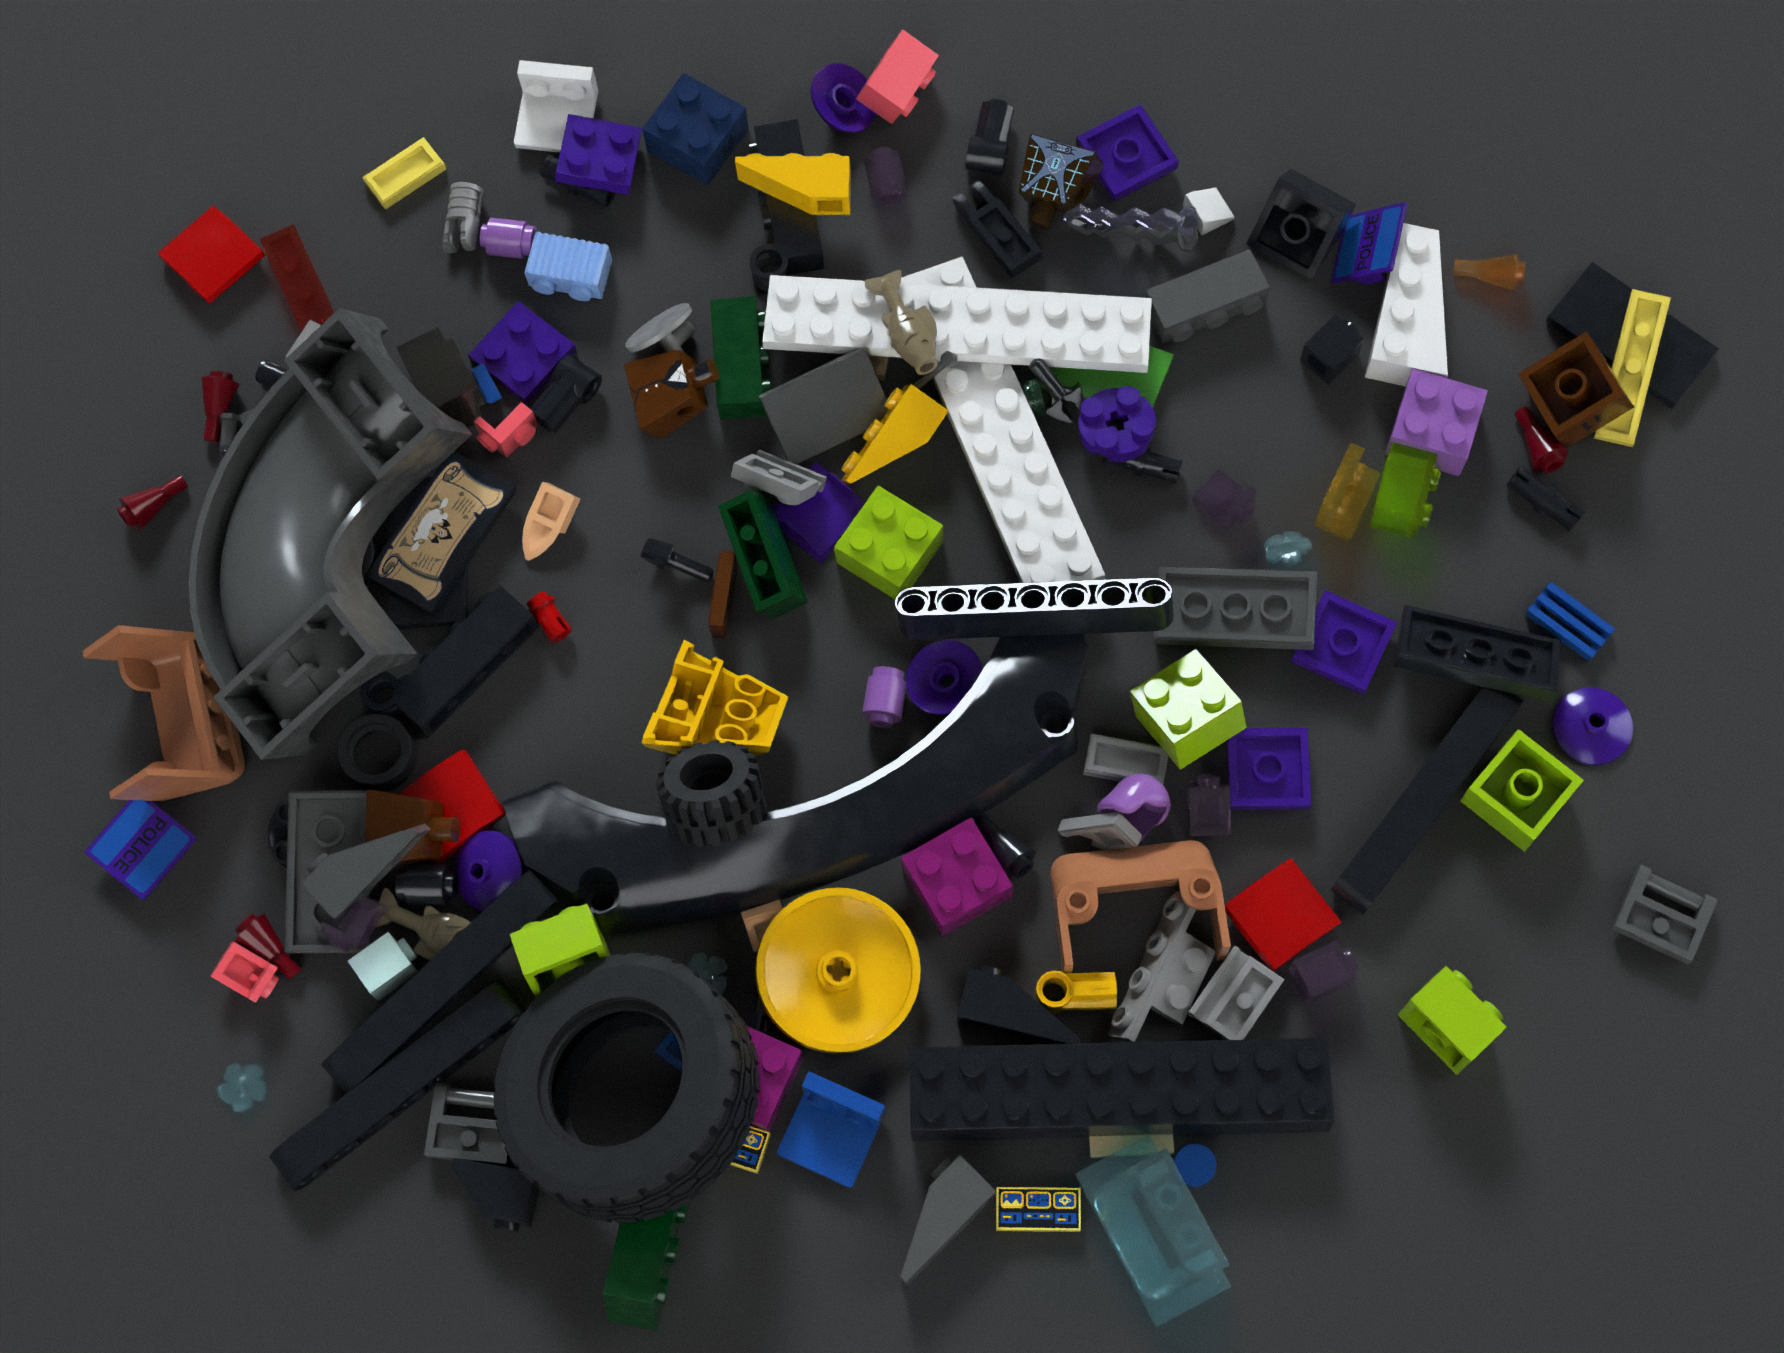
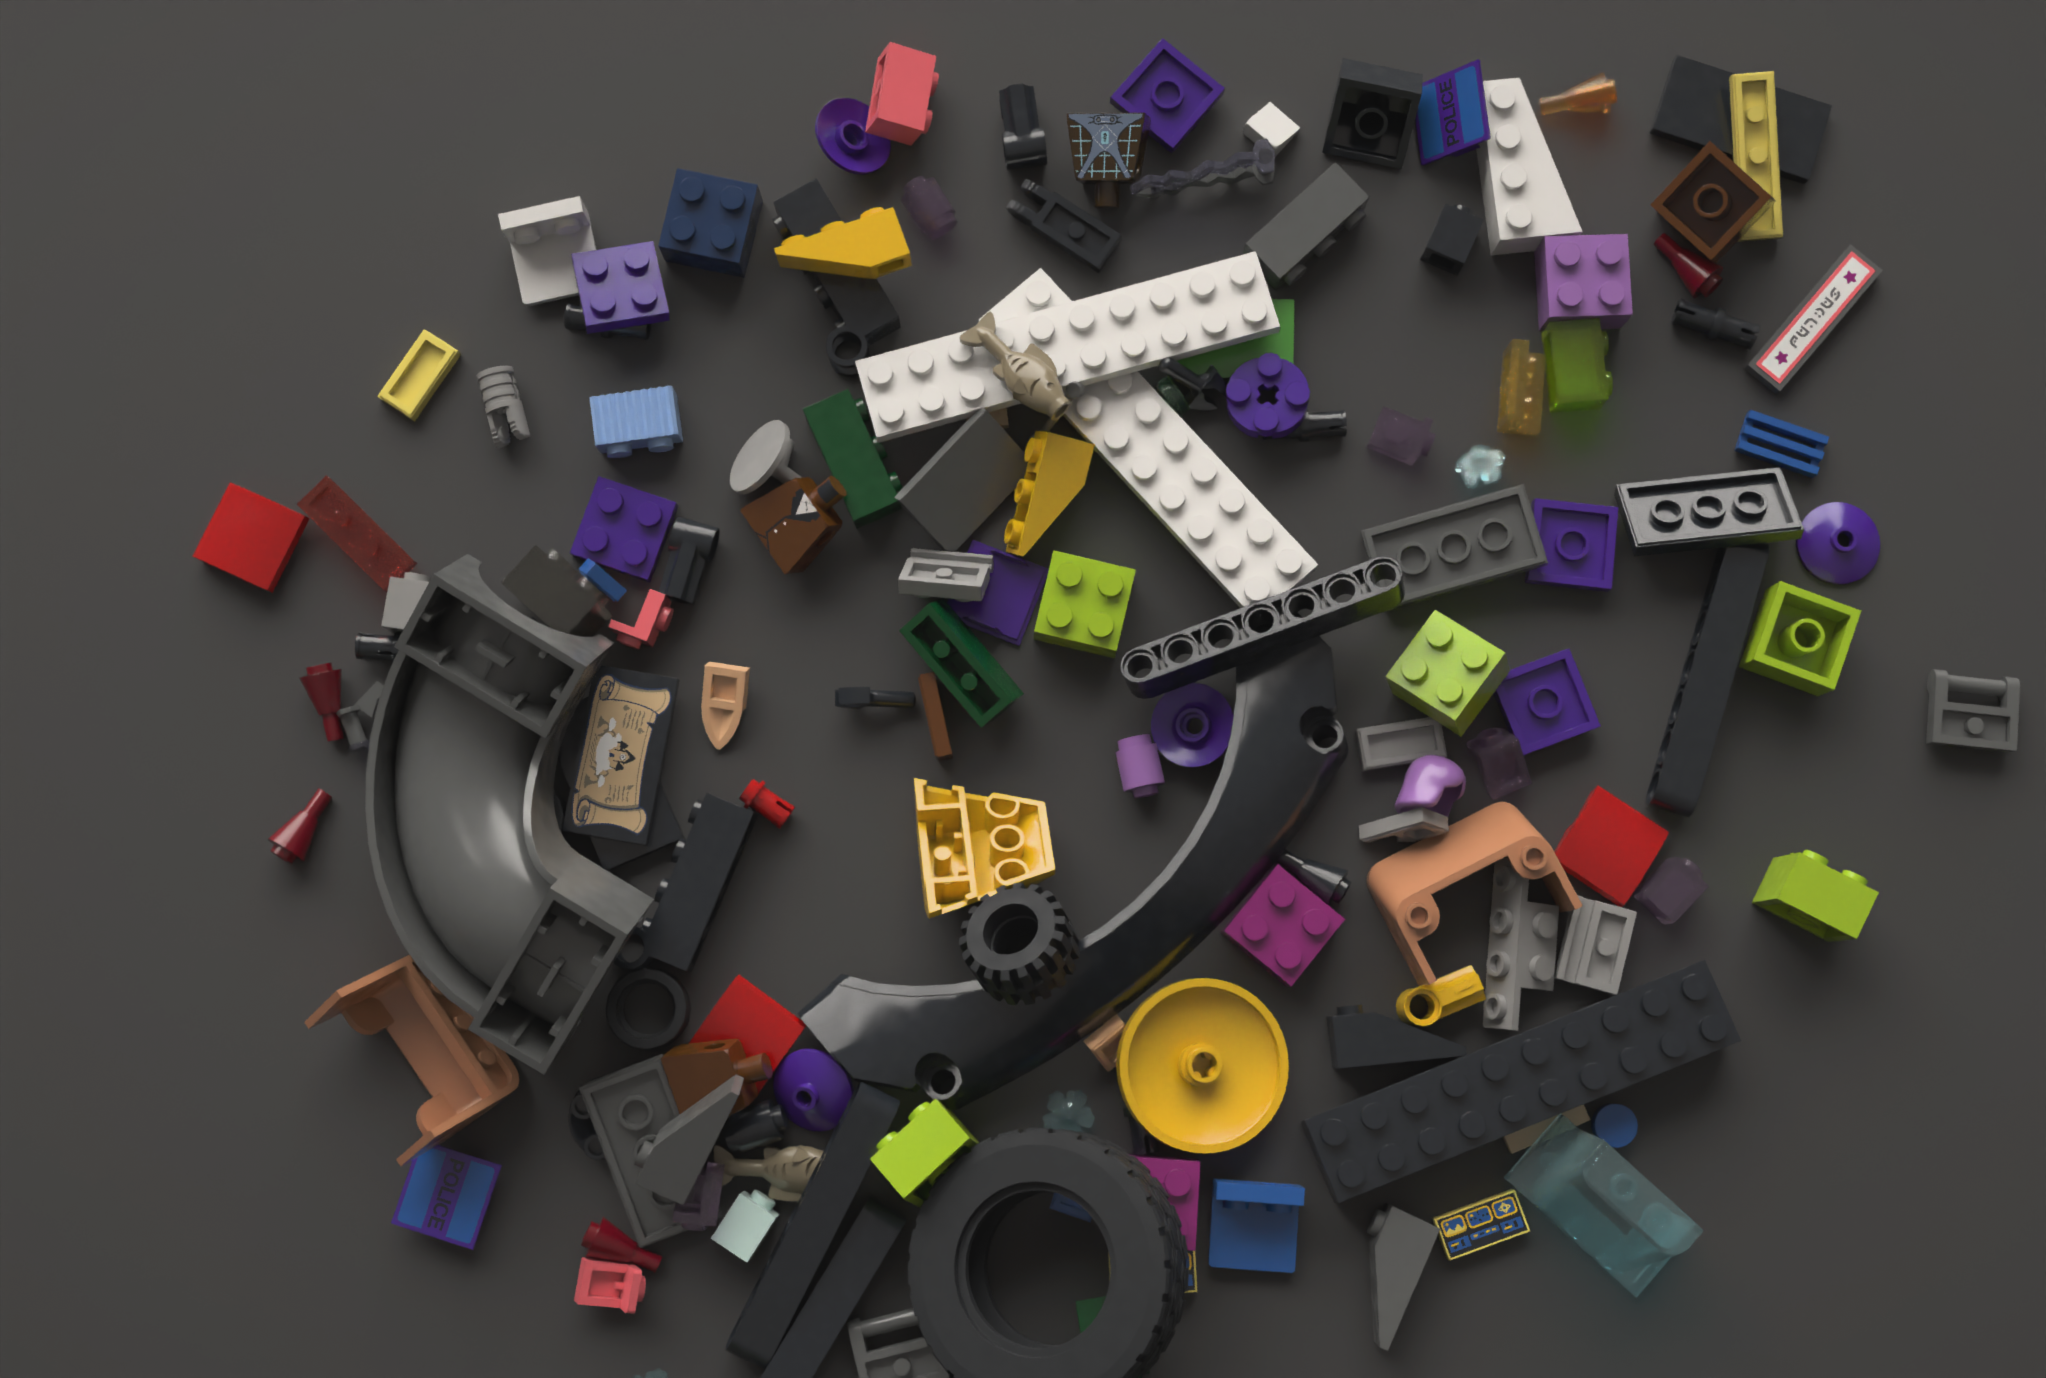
camera: 25 degrees left, 10 degrees up
(507, 238) = (560, 411): medium lavender brick -> none
(1637, 525) = (1813, 319): none -> tile

